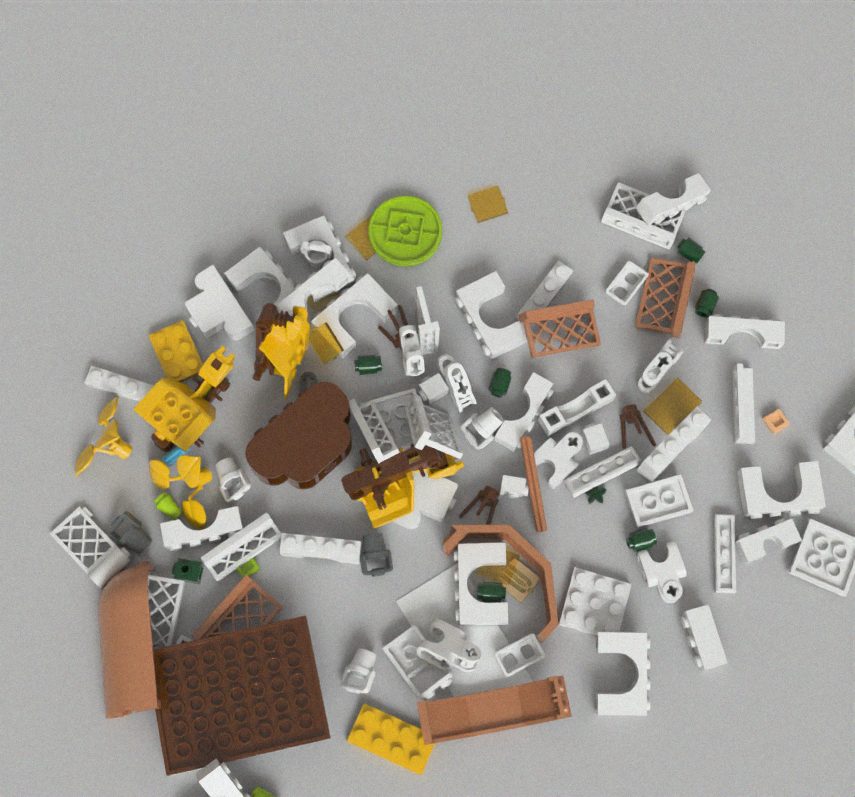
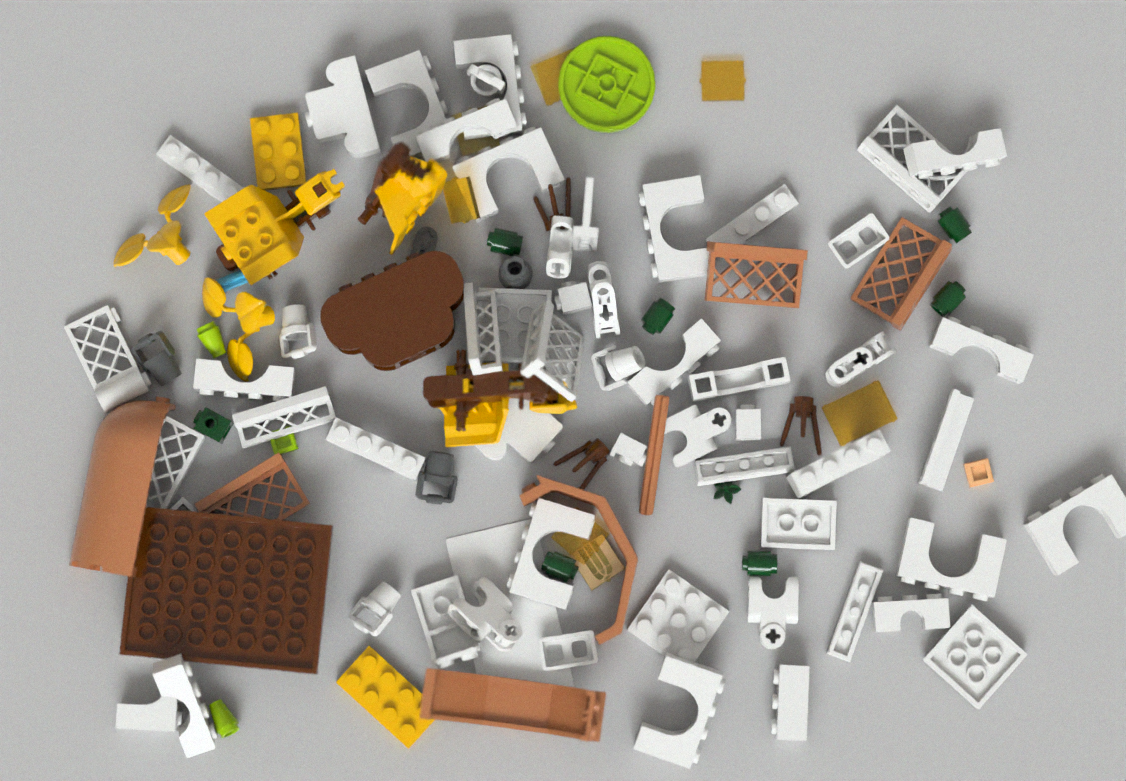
camera: 20 degrees right, 10 degrees up
(385, 388) = (518, 281): none -> dark grey plant

